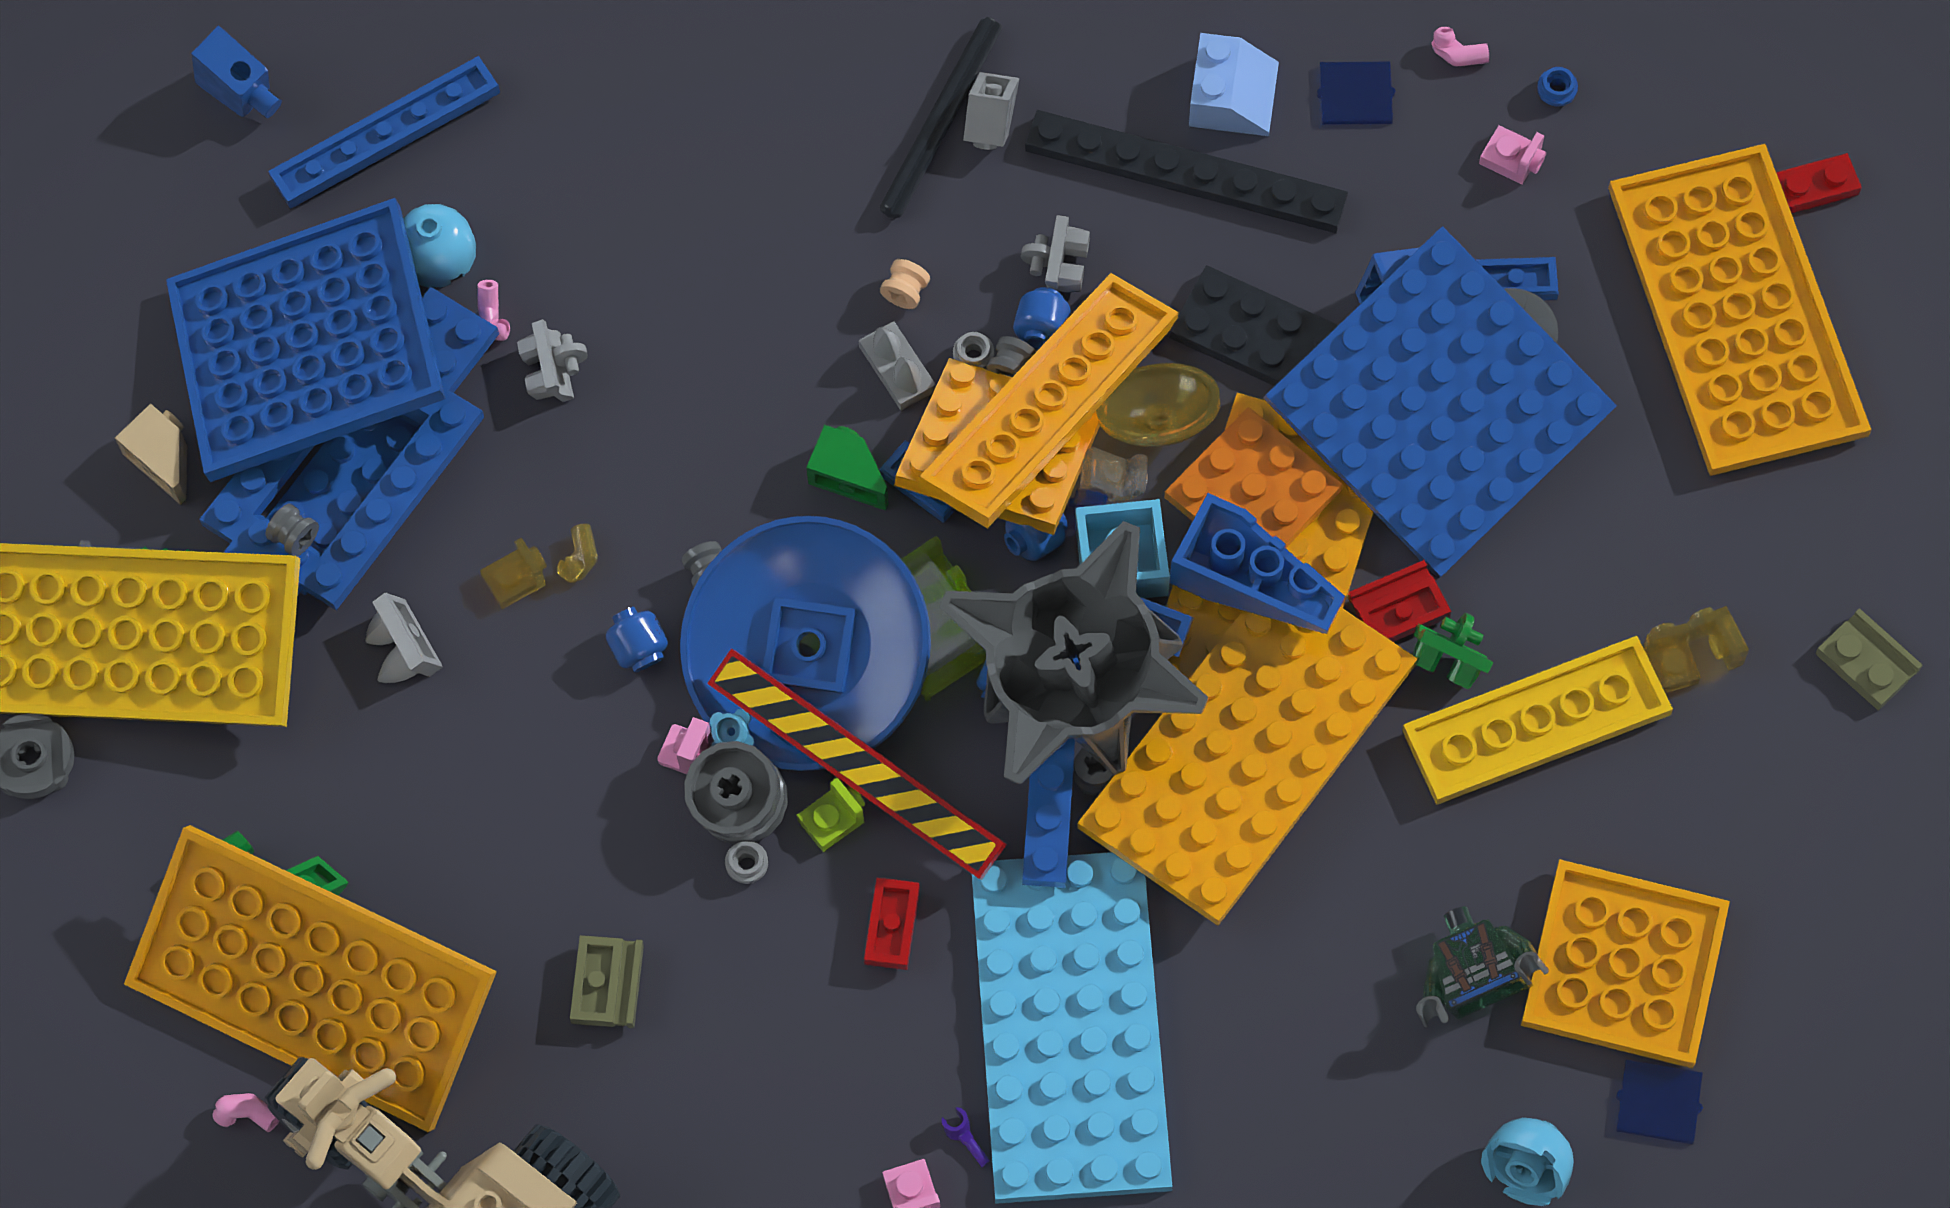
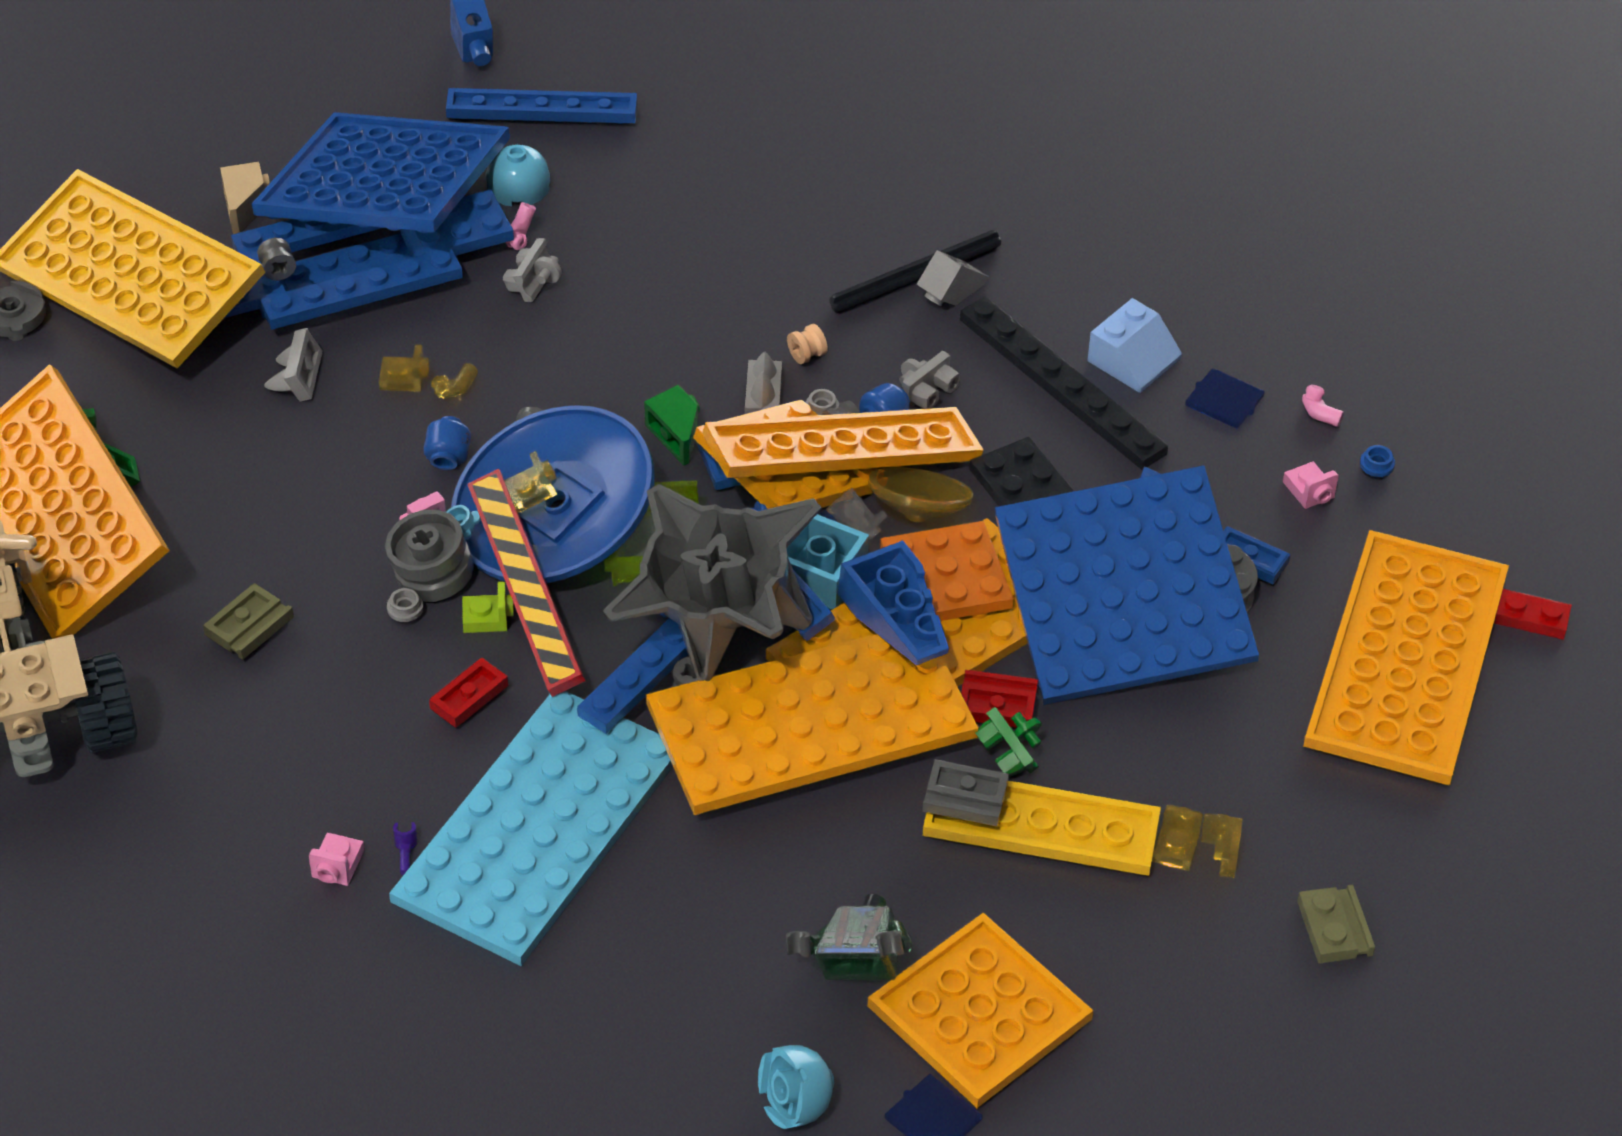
camera: 30 degrees right, 20 degrees down
(782, 648) = (532, 485): none -> clear yellow bracket
(1457, 740) = (965, 792): none -> dark grey plate

